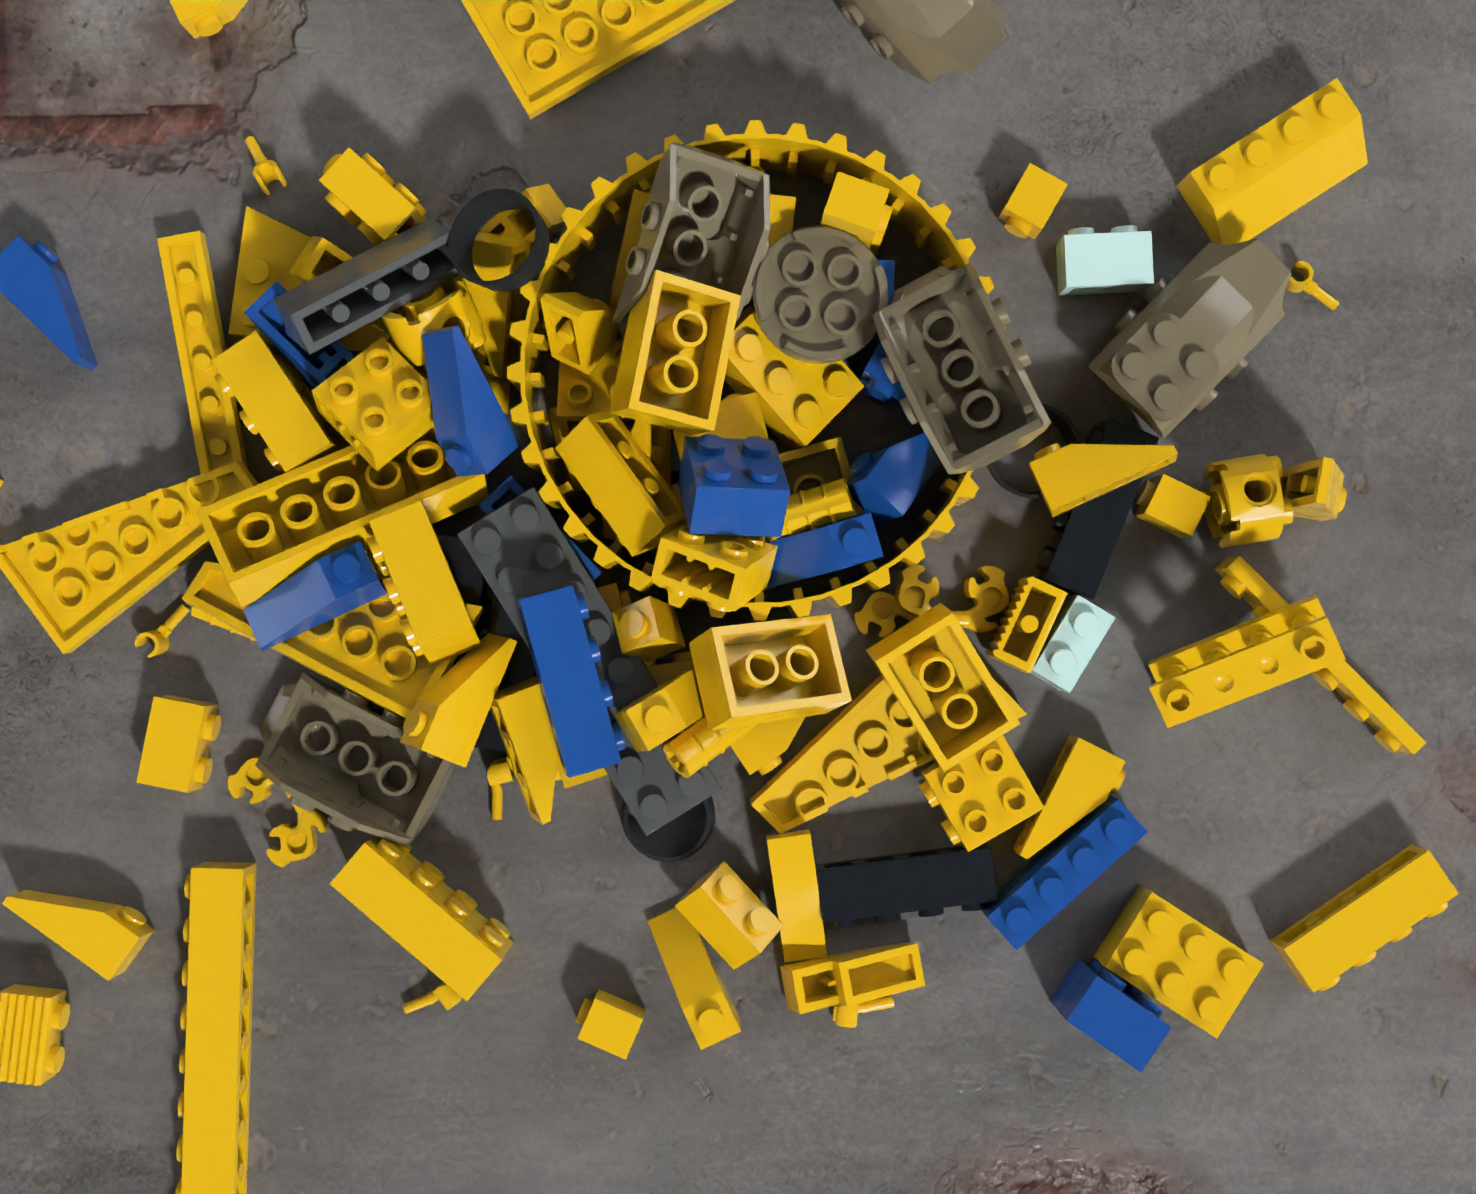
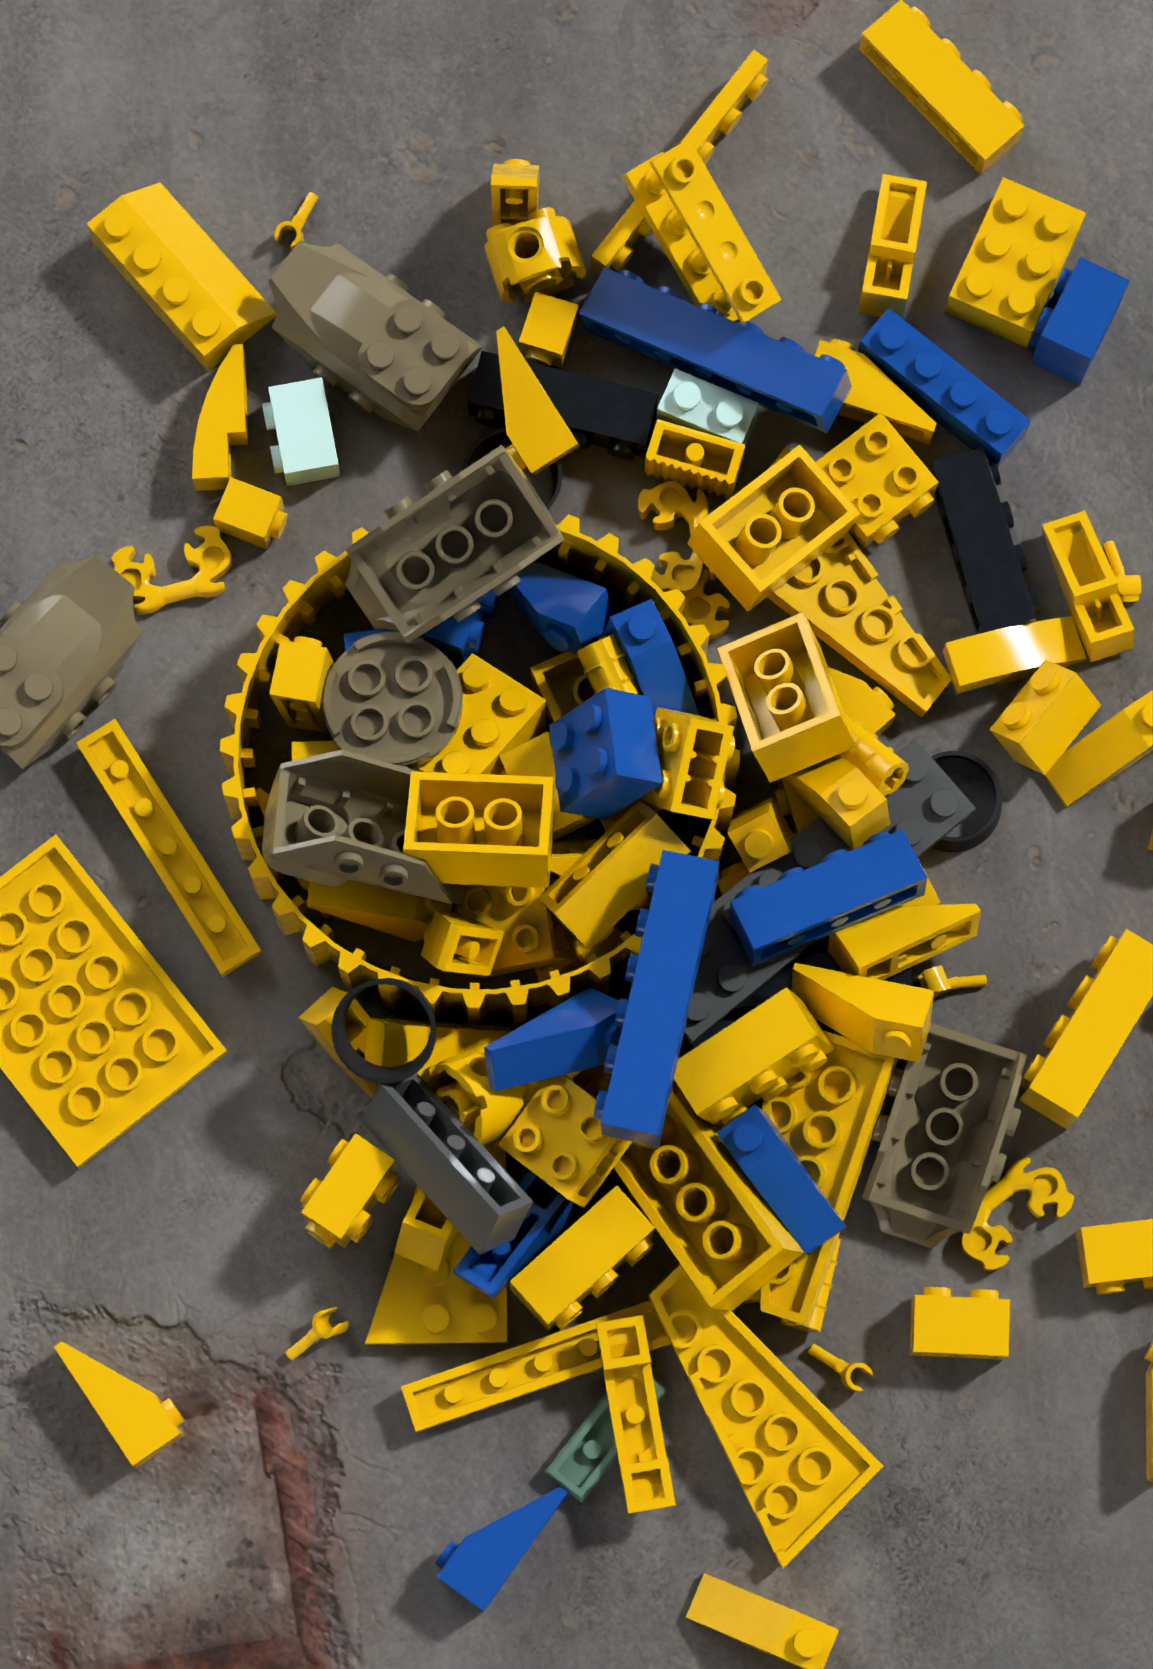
camera: 100 degrees left, 10 degrees down
(133, 435) = (635, 1414): none -> yellow slope
(138, 412) = (590, 1450): none -> sand green tile
(479, 499) = (659, 998): none -> blue brick
(726, 87) = (168, 847): none -> yellow plate
(984, 90) = (210, 557): none -> yellow helmet
(1125, 188) = (221, 423): none -> yellow slope
(1129, 661) = (716, 348): none -> blue brick
(1210, 845) = (892, 245): none -> yellow slope

